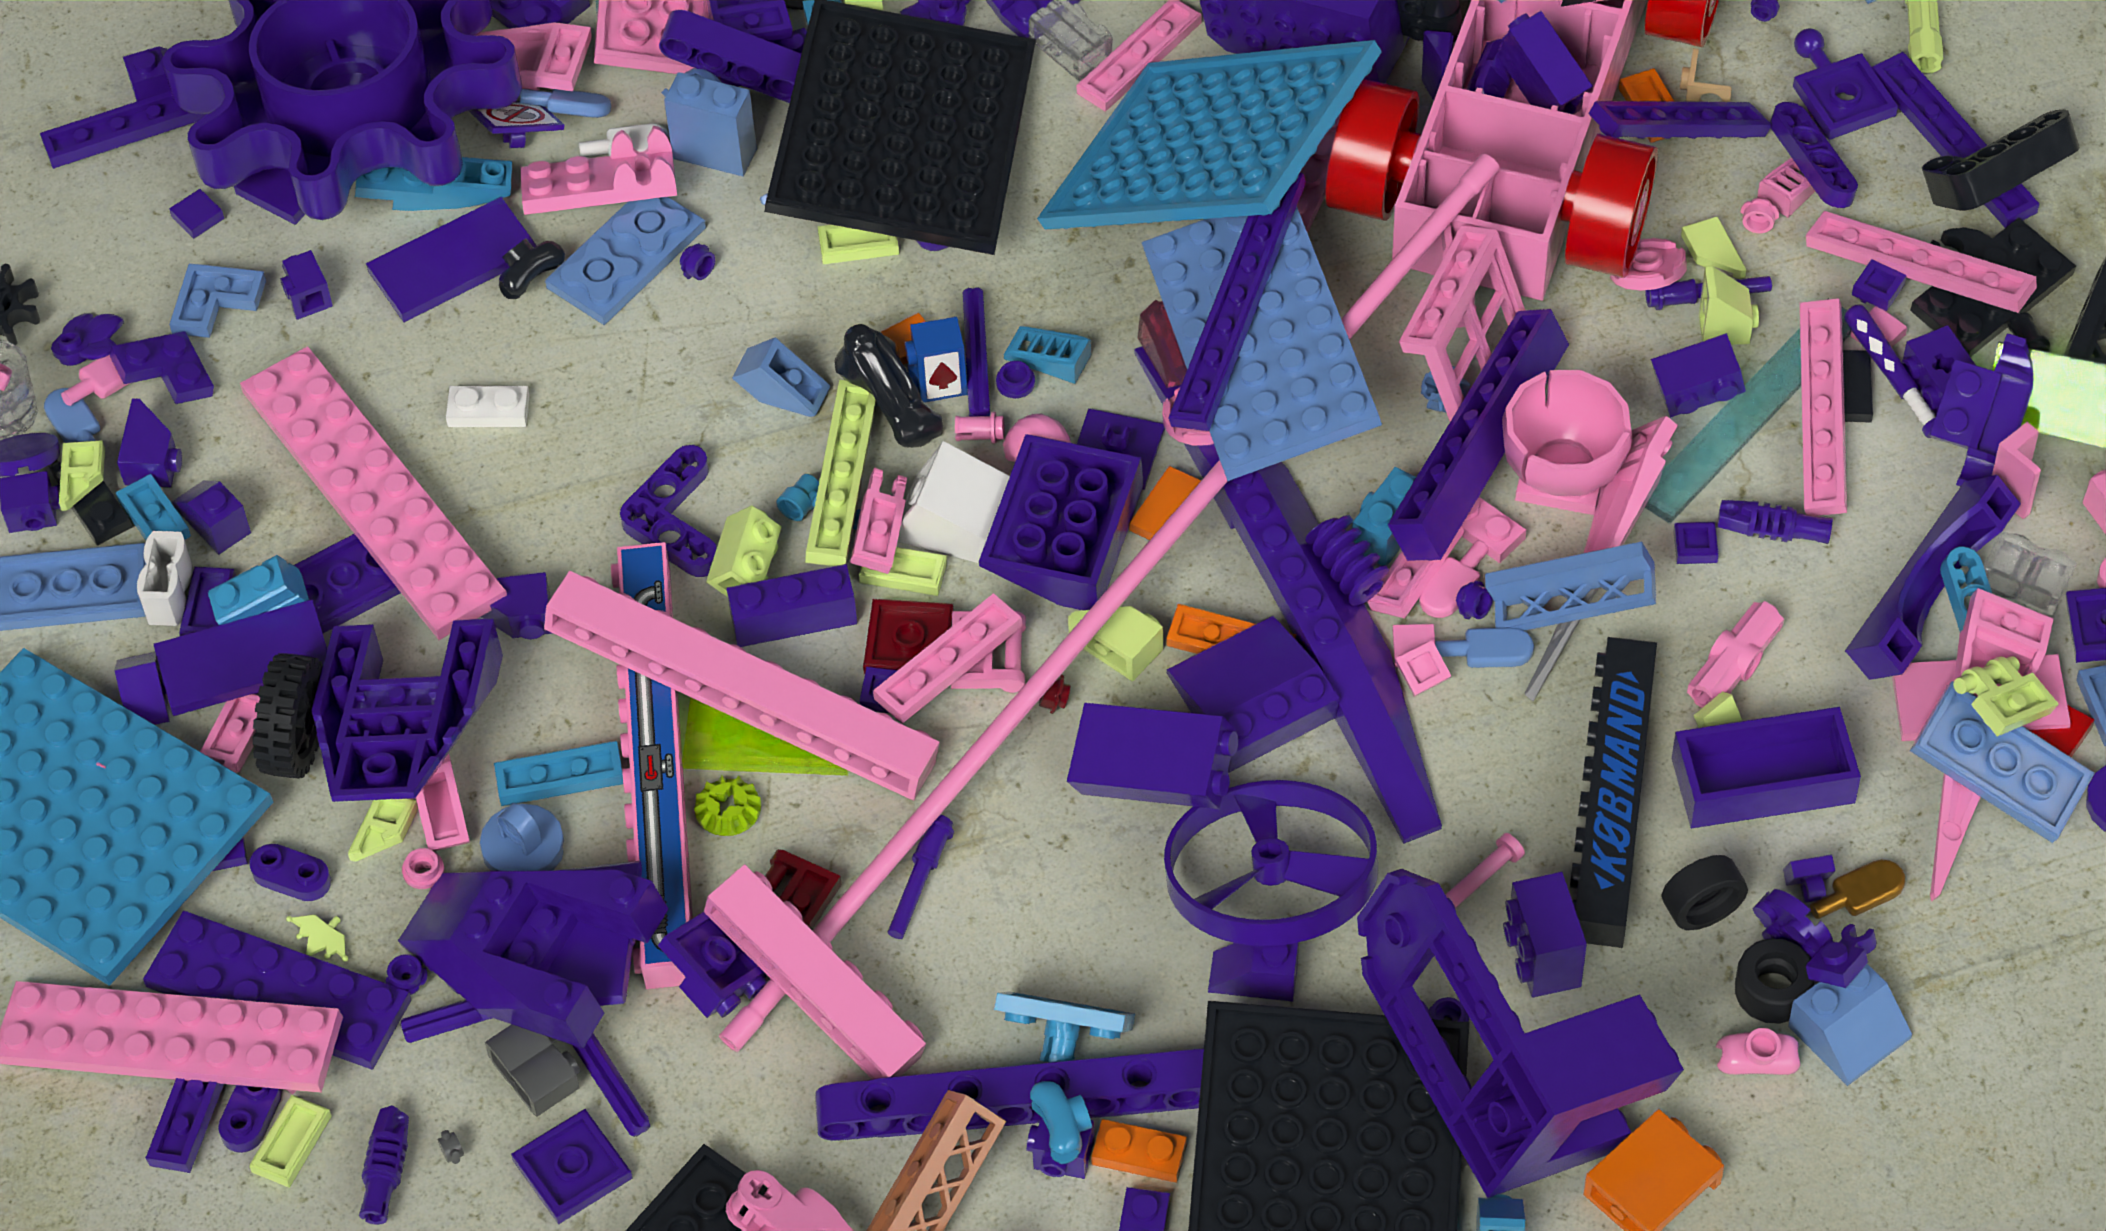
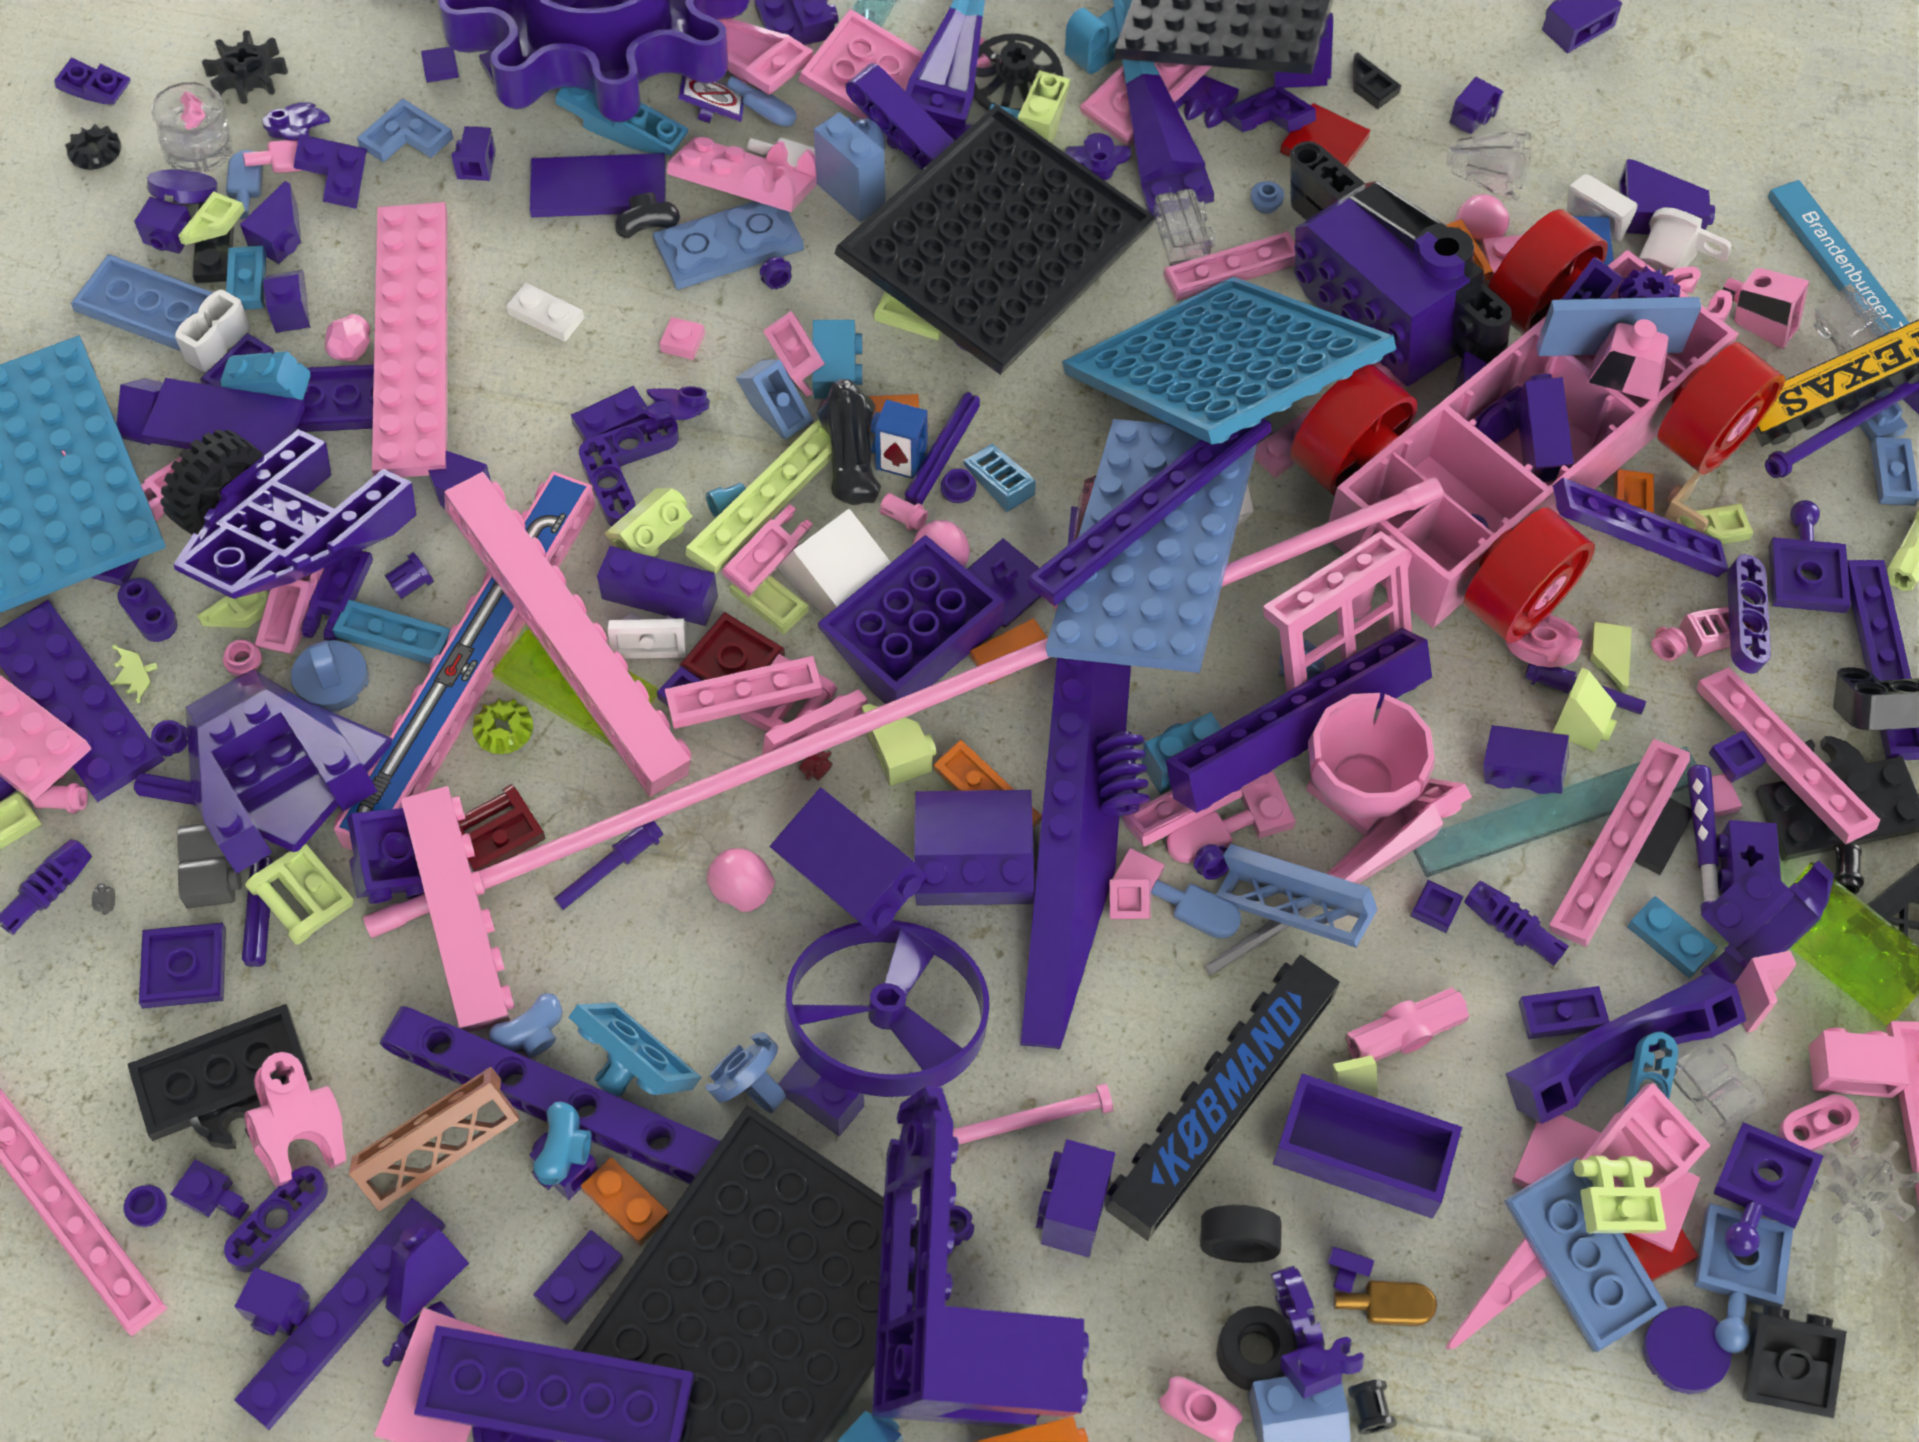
camera: 25 degrees right, 5 degrees up
(307, 522) = (347, 338): none -> bright pink rock
(341, 1079) = (63, 797): none -> bright pink pin
(475, 765) = (335, 588): none -> dark purple hinge
(537, 713) = (408, 576): none -> dark purple bush
(626, 472) = (610, 413): none -> dark purple plate
(645, 367) = (682, 338): none -> bright pink plate
(649, 1032) = (310, 885): none -> yellowish green plate
(698, 426) = (676, 403): none -> dark purple plate
(769, 317) = (794, 349): none -> bright pink panel
(816, 314) = (838, 348): none -> dark azure brick
(819, 655) = (647, 637): none -> white tile
(952, 1048) = (531, 1029): none -> medium blue piece
(1046, 638) = (816, 720): none -> bright pink plate
(1052, 827) = (740, 879): none -> bright pink hair
(1181, 982) = (746, 1072): none -> medium blue tile
(1746, 82) = (1725, 523): none -> yellowish green tile
(1860, 577) = (1563, 1012): none -> dark purple plate
(1901, 976) = (1372, 1406): none -> black bush
(1913, 469) = (1672, 937): none -> dark azure plate

